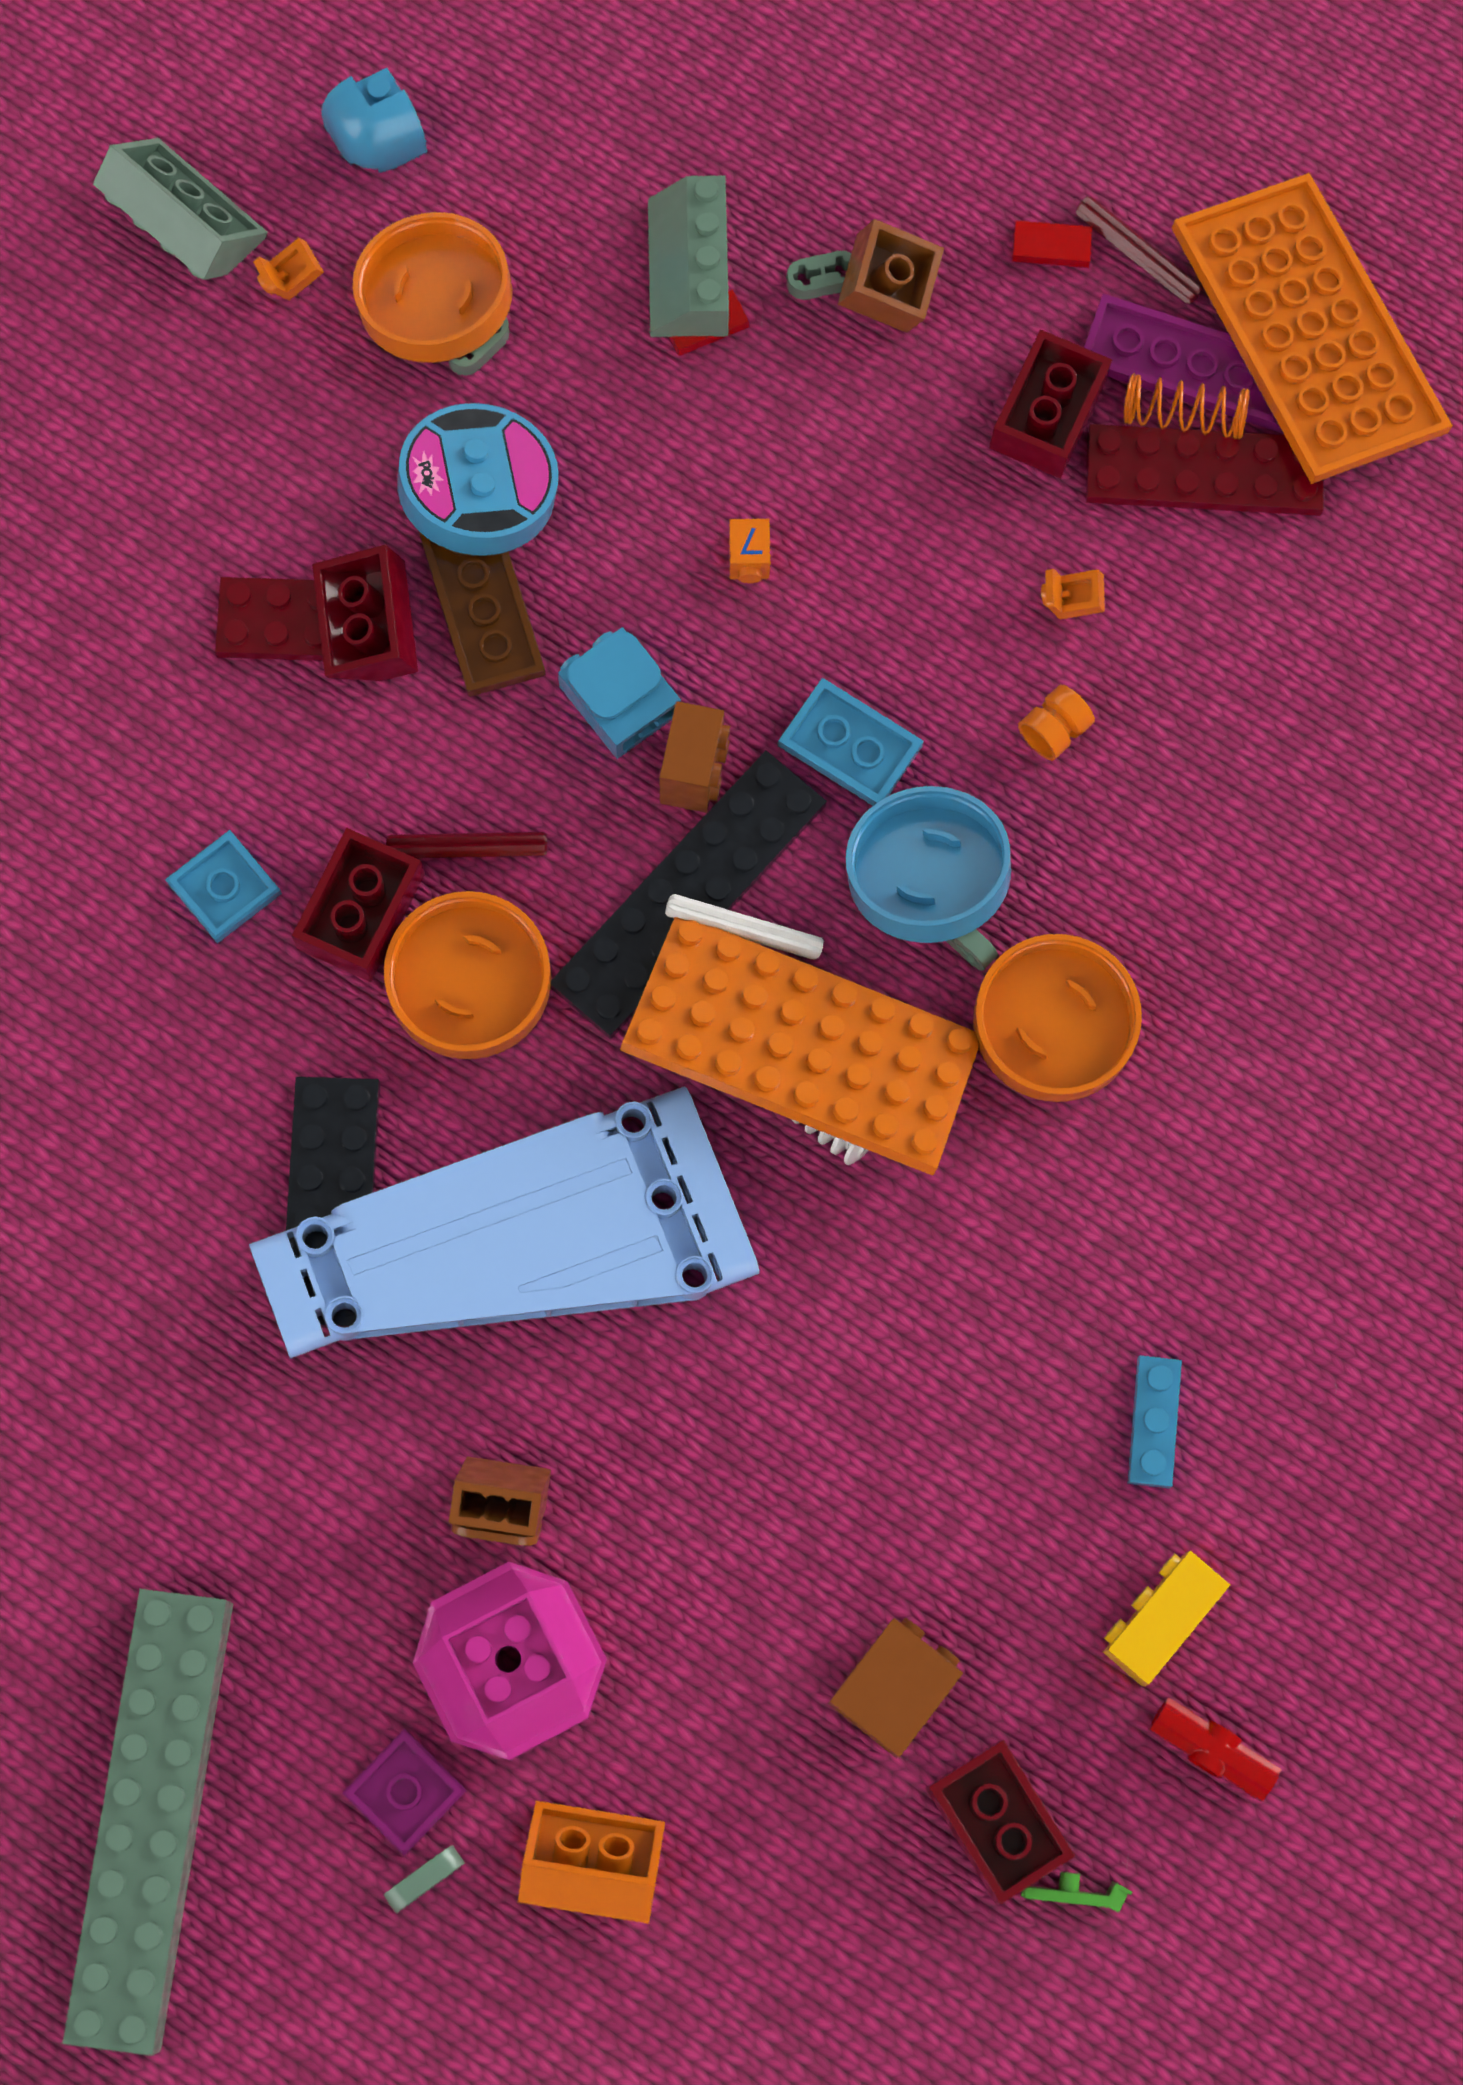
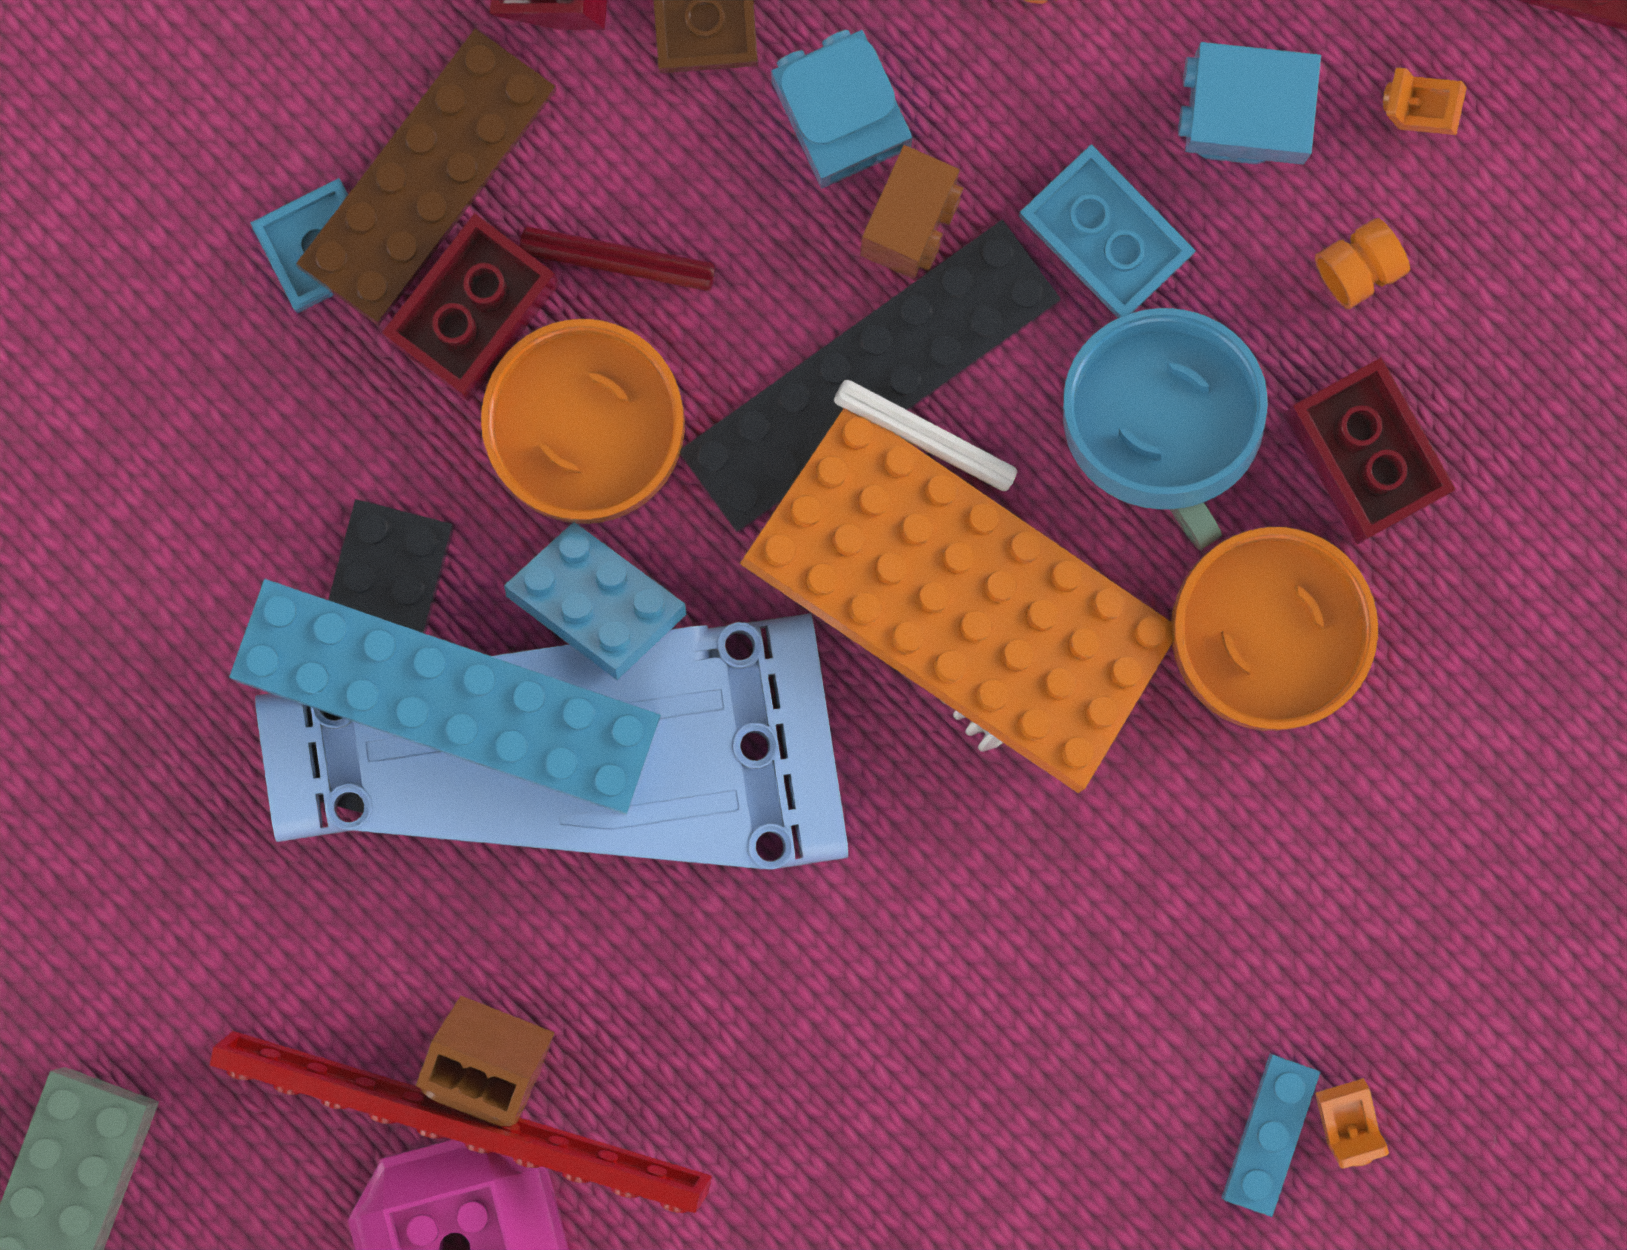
camera: 15 degrees right, 10 degrees up
(299, 814) = (426, 177): none -> reddish brown plate
(405, 1205) = (444, 696): none -> dark azure brick
(471, 1553) = (527, 1141): none -> red plate
(508, 1110) = (595, 600): none -> dark azure plate
(939, 621) = (1250, 104): none -> dark azure brick
(1097, 863) = (1369, 450): none -> dark red brick
(1216, 1395) = (1351, 1124): none -> orange bracket

